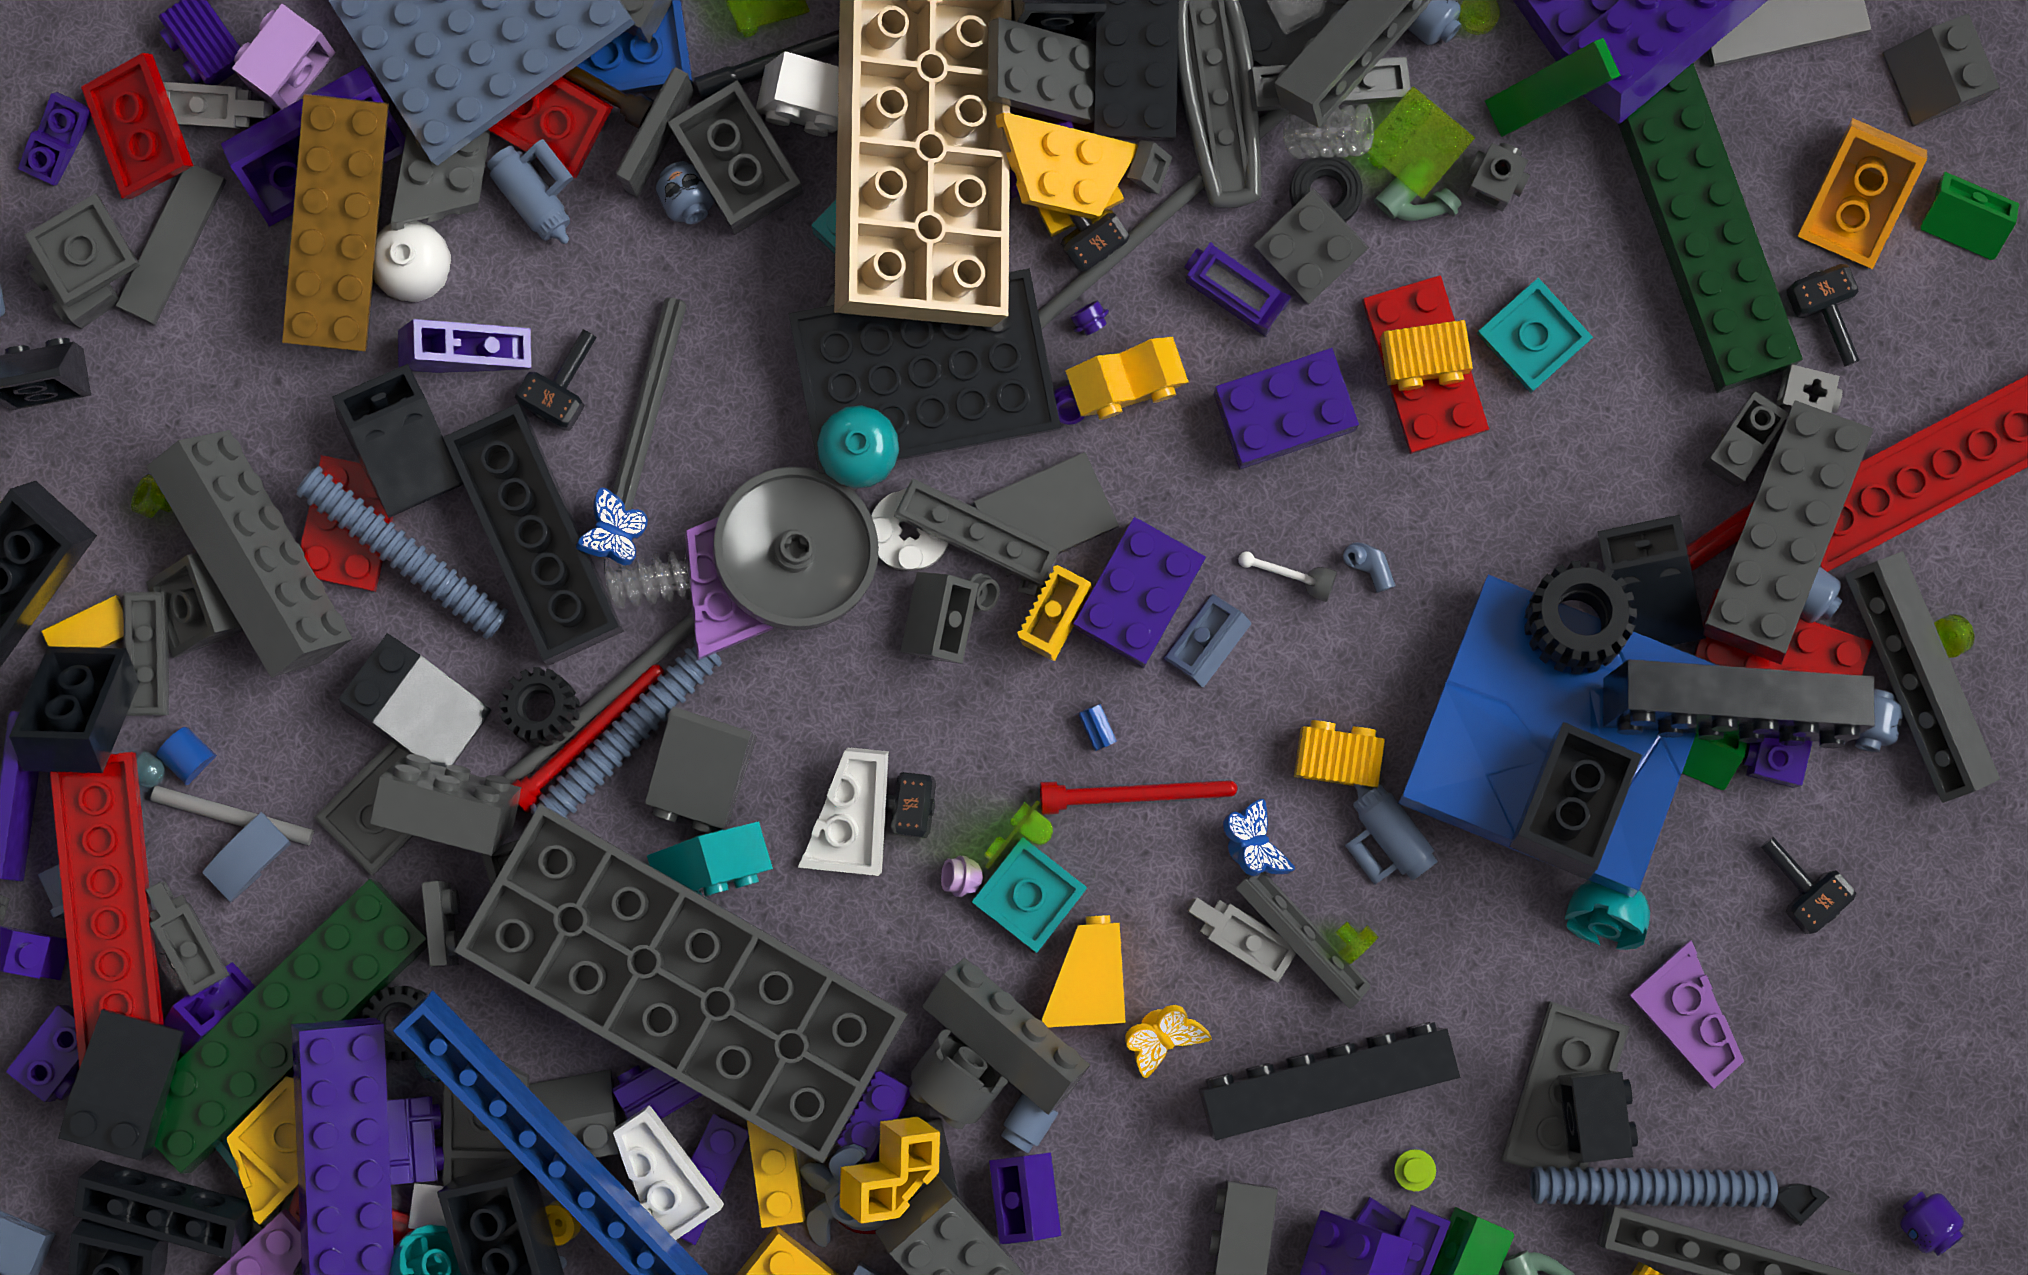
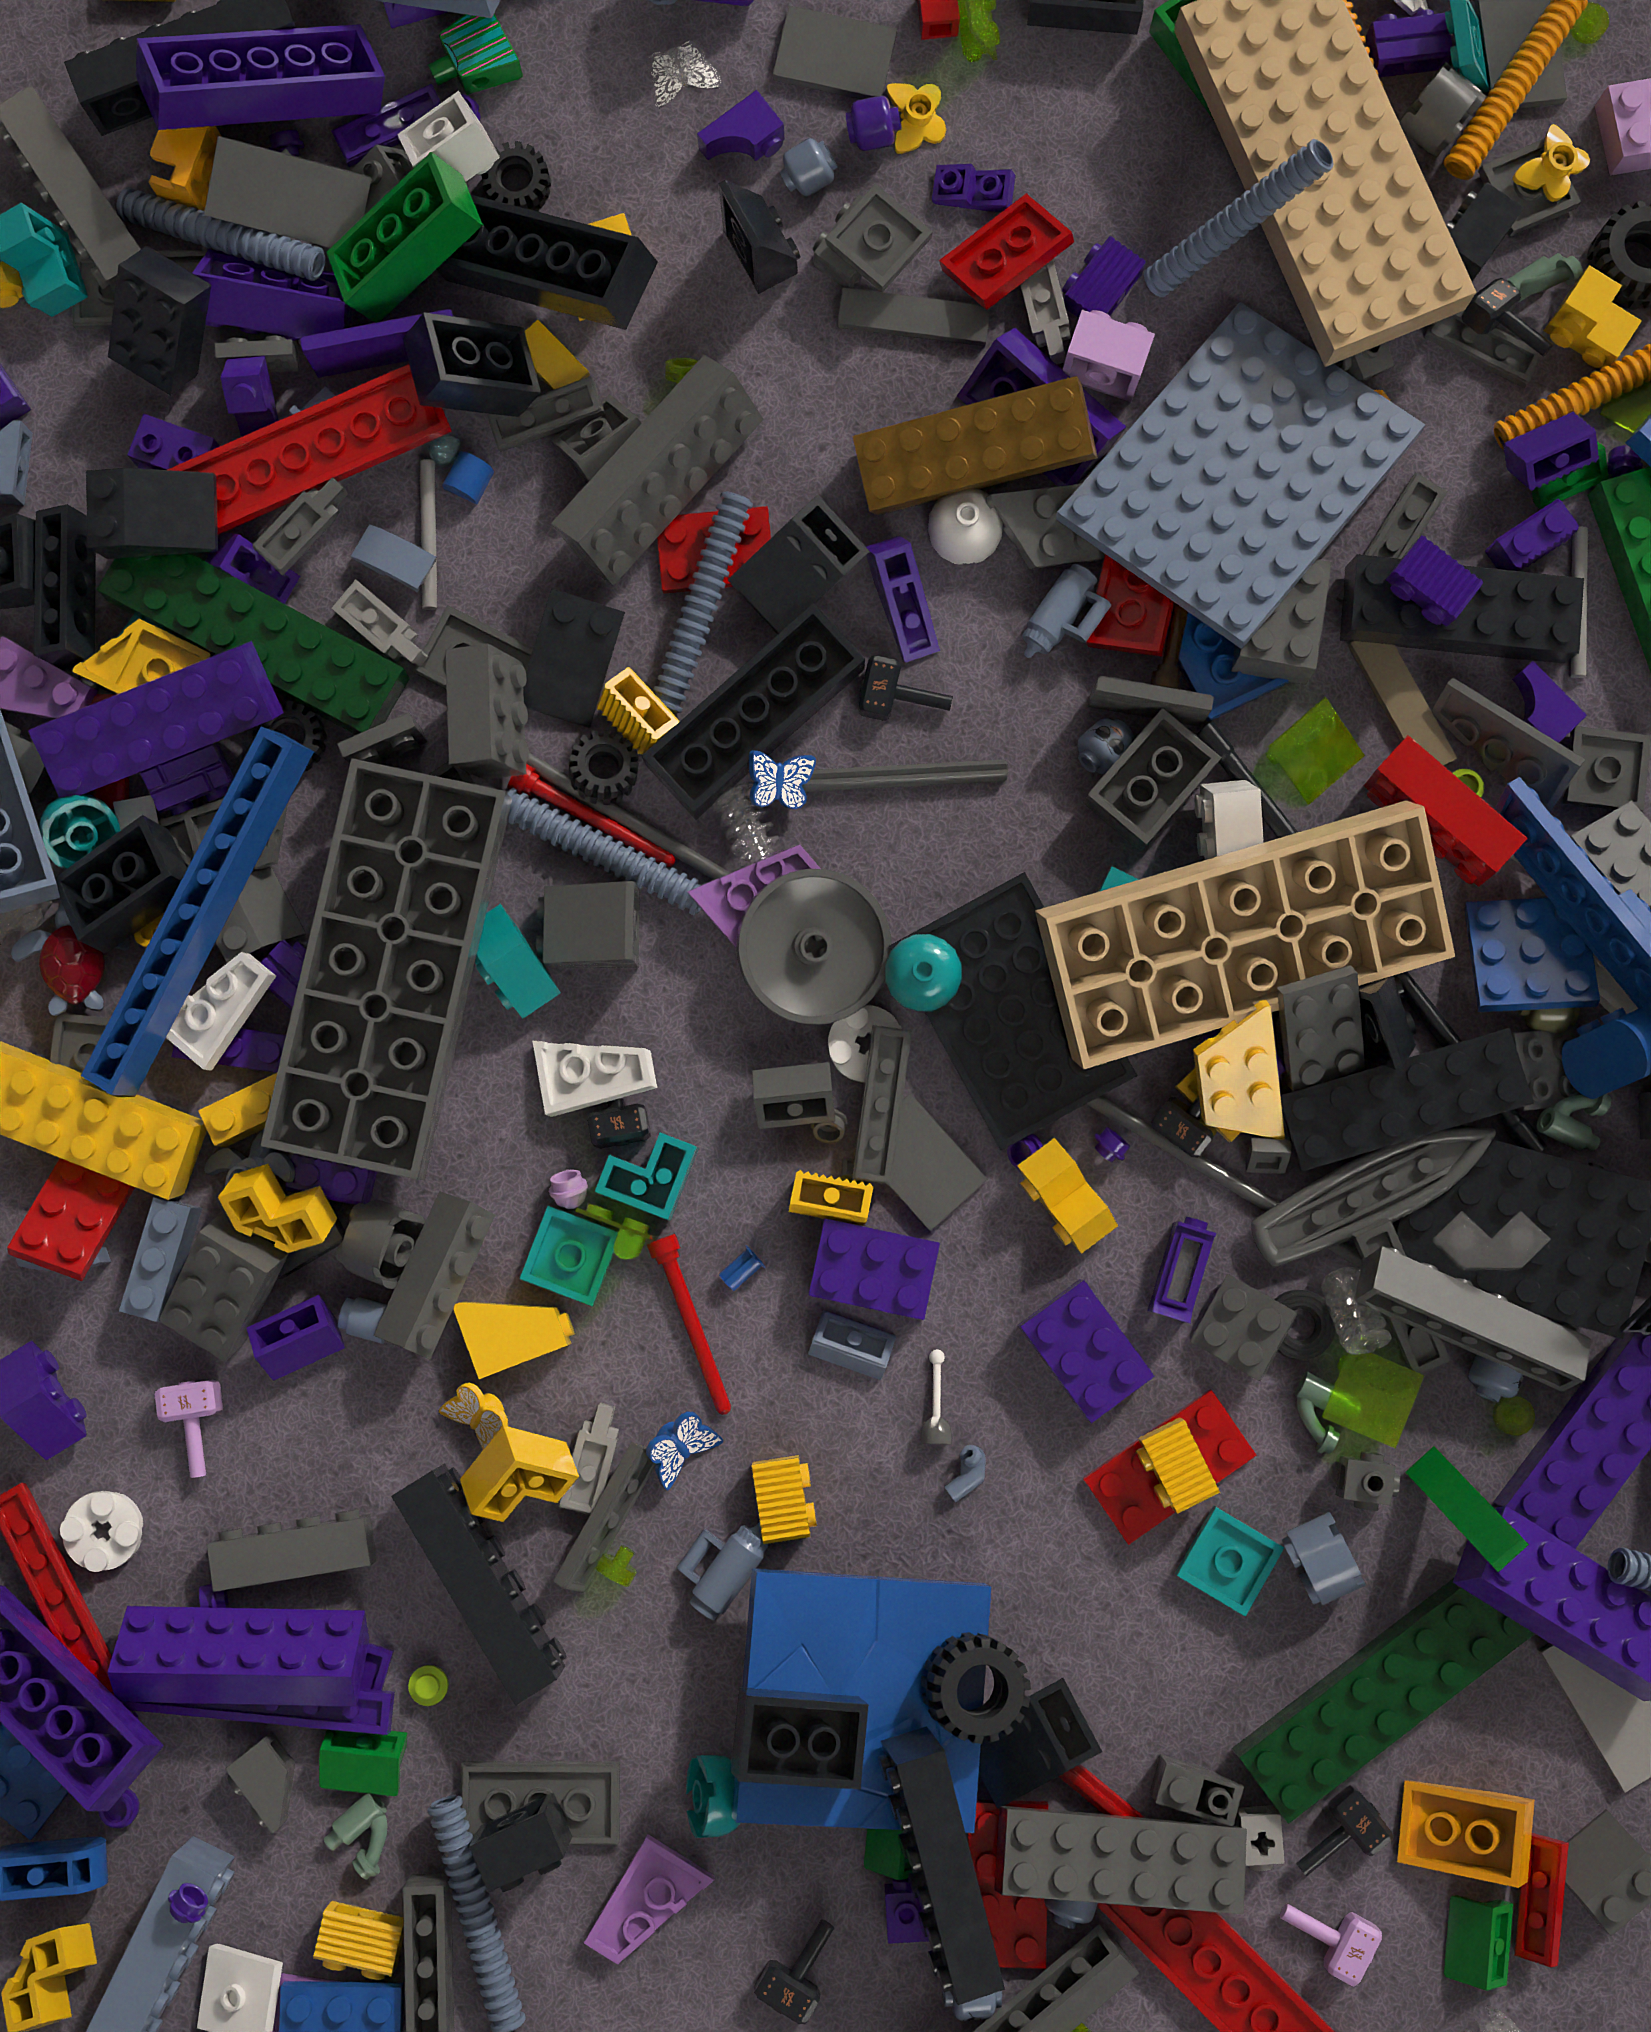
camera: 75 degrees right, 0 degrees up
(311, 893) = (379, 624): none -> light grey hinge
(494, 654) = (635, 710): none -> yellow brick
(987, 782) = (657, 1186): none -> teal brick
(1225, 1011) = (517, 1466): none -> yellow brick
(1560, 241) = (1326, 1559): none -> sand blue brick
(1939, 341) = (1350, 1946): none -> lavender piece
(1950, 142) = (1542, 1902): none -> red tile

